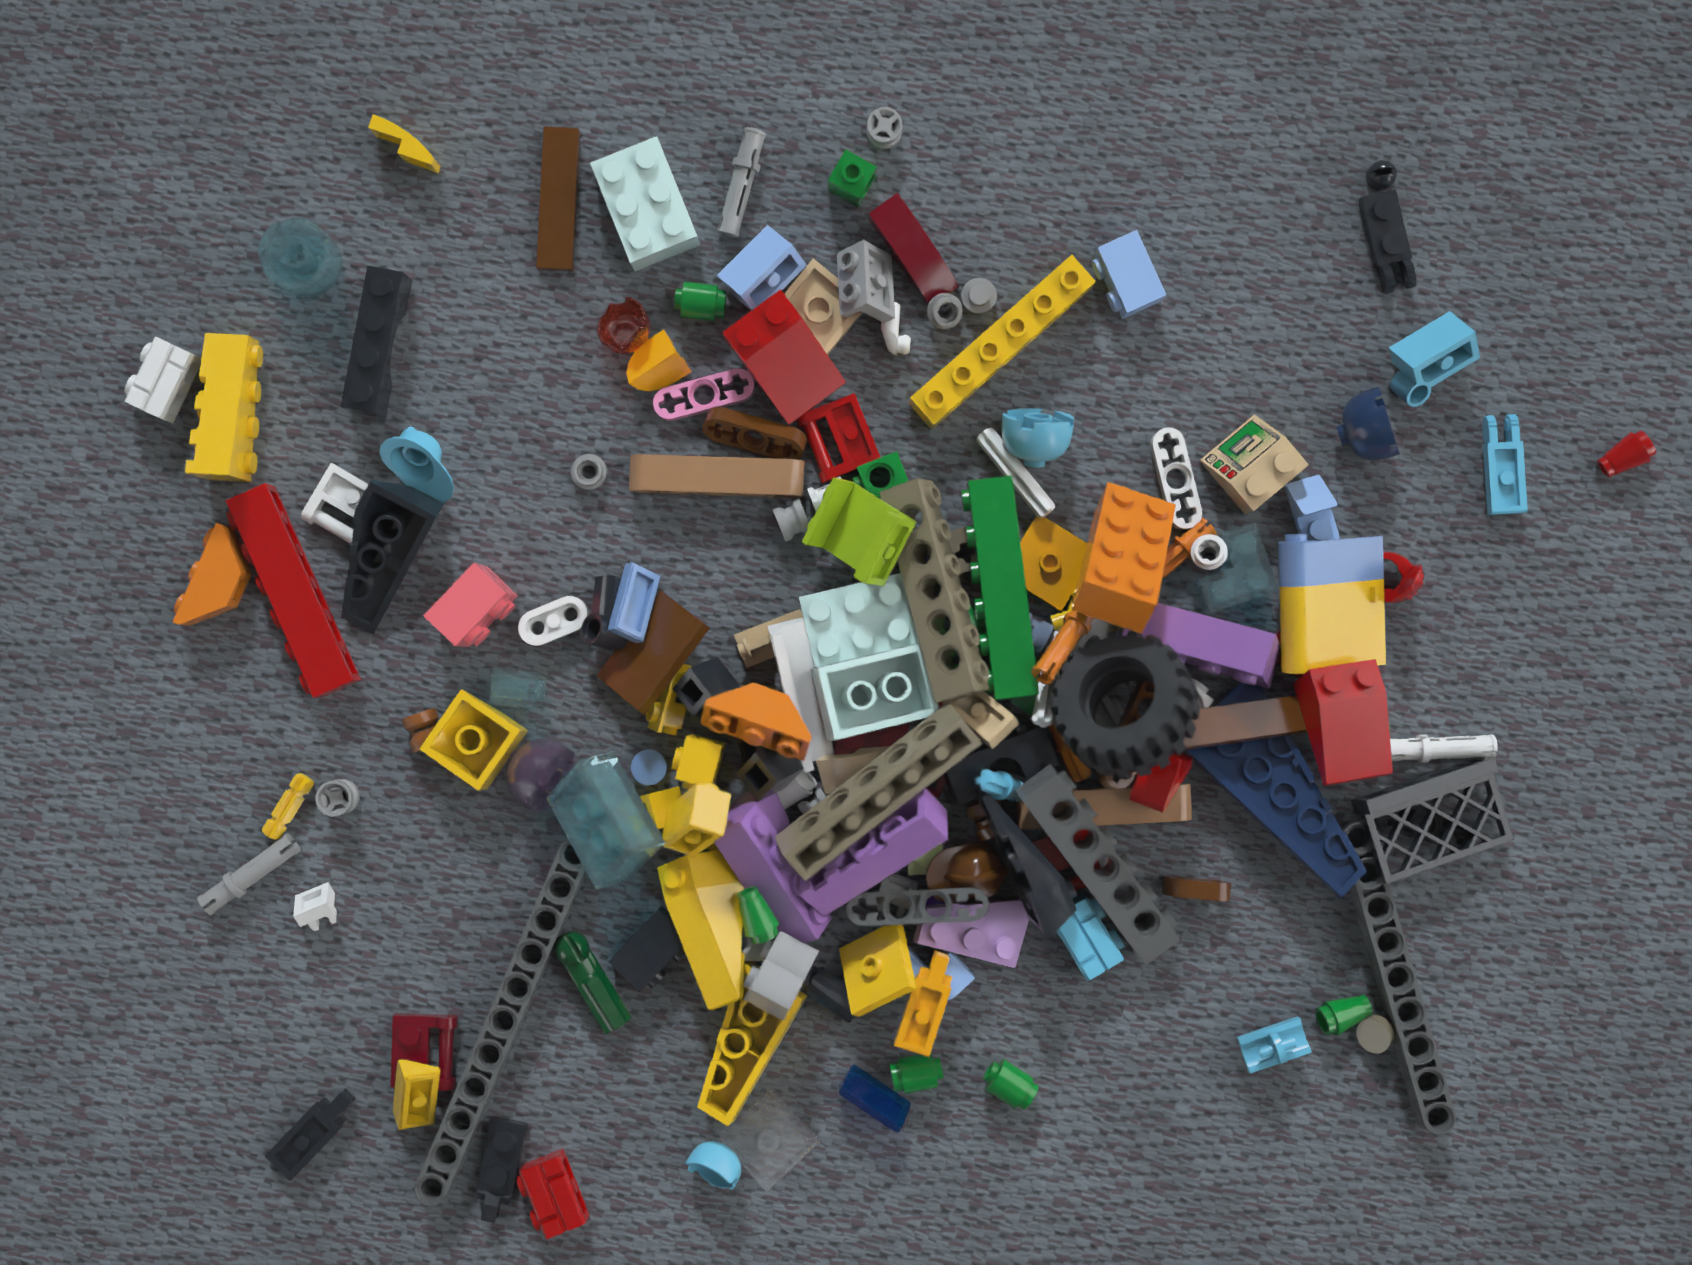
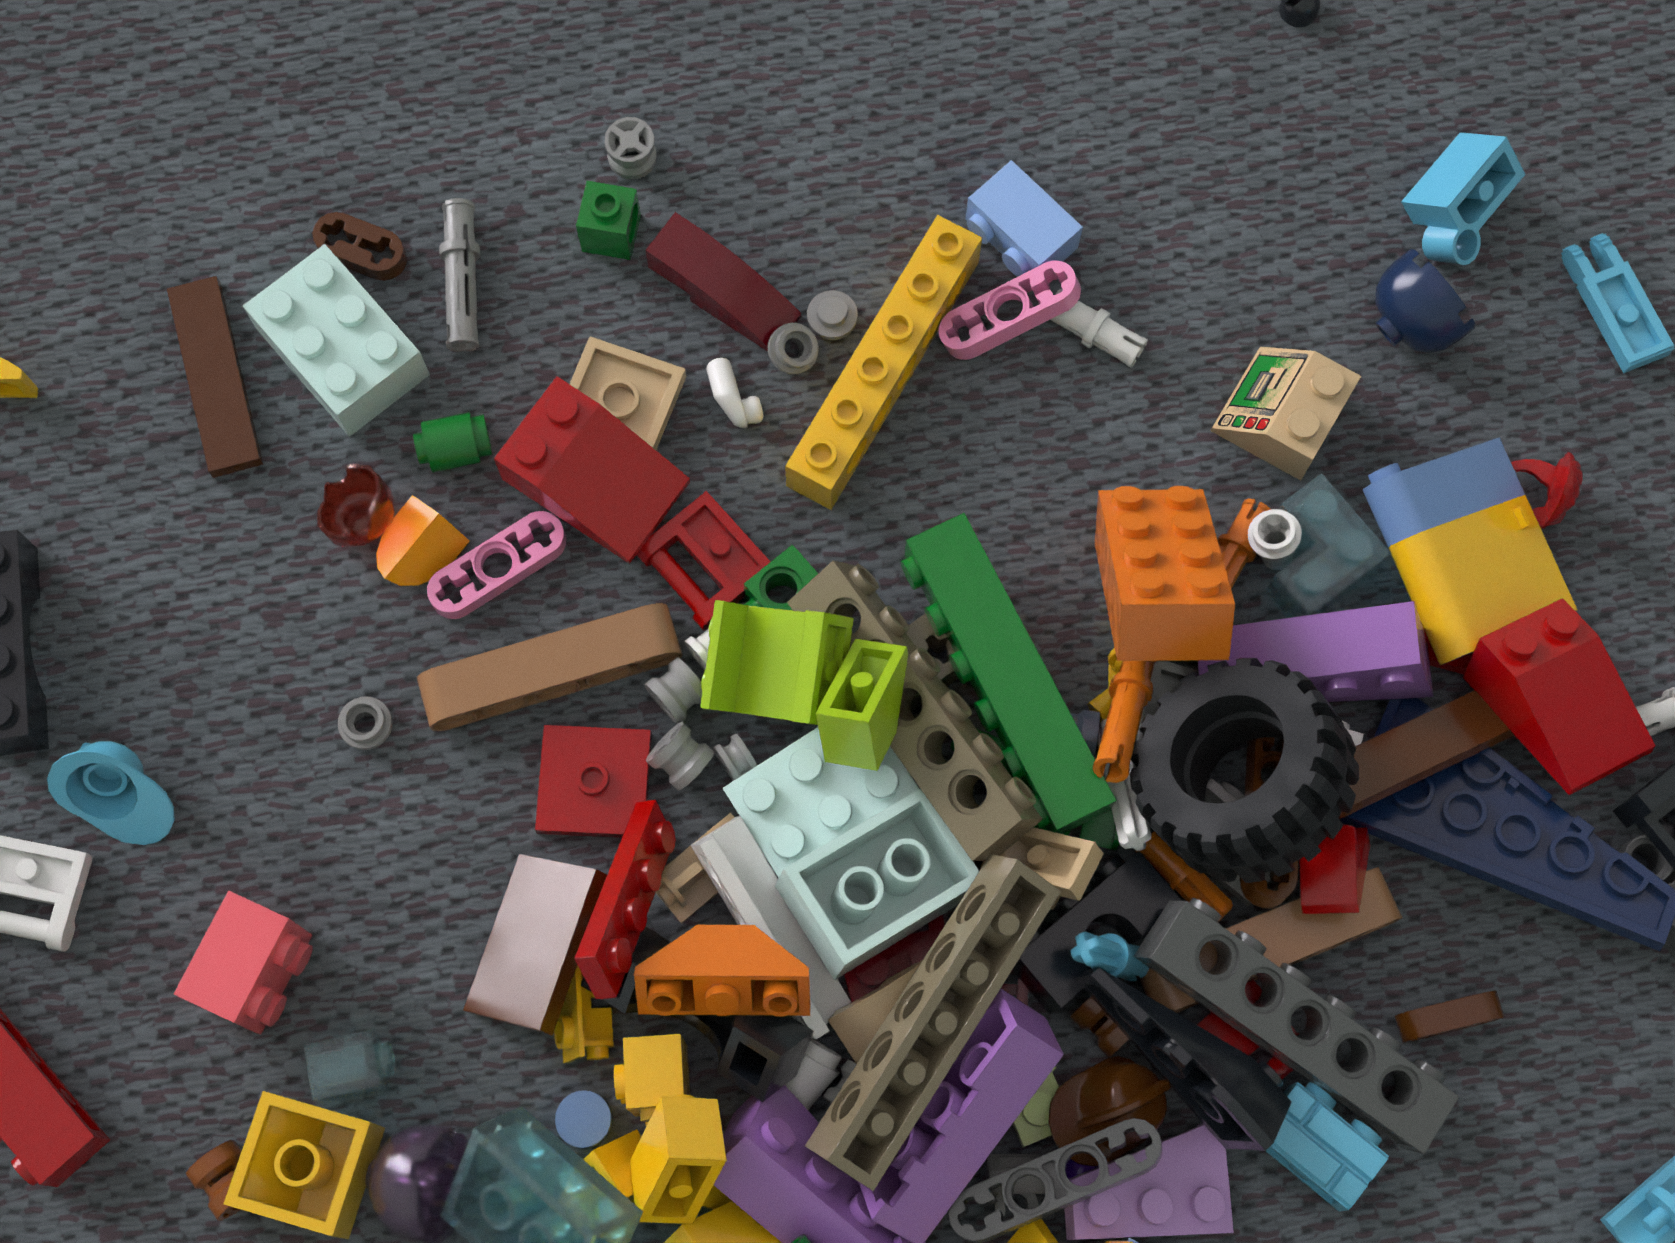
camera: 15 degrees left, 15 degrees down
(385, 541) = (92, 916): black wedge -> none
(554, 620) = (374, 947): white plate -> none
(595, 625) = (452, 927): black piece -> none
(634, 603) = (485, 881): medium blue tile -> none
(686, 131) = (363, 236): none -> reddish brown beam
(716, 648) = (625, 900): none -> red plate
(721, 559) = (591, 779): none -> red plate
(740, 439) = (601, 576): reddish brown beam -> none
(762, 268) = (522, 367): light blue brick -> none
(780, 563) = (680, 756): none -> light grey wheel
(814, 577) = (735, 757): none -> light grey bush
(866, 281) = (671, 340): light grey bracket -> none
(902, 581) = (863, 705): none -> lime slope
(1022, 479) = (993, 537): white axle -> none
(1036, 435) = (978, 465): medium azure cylinder -> none
(1051, 561) = (1067, 627): light orange plate -> none
(1122, 324) = (1015, 289): none -> bright pink beam
(1150, 364) = (1101, 331): none -> white pin
(1161, 455) = (1179, 423): white beam -> none
(1312, 509) = (1385, 434): light blue slope -> none
(1387, 238) = (1341, 78): black hinge -> none

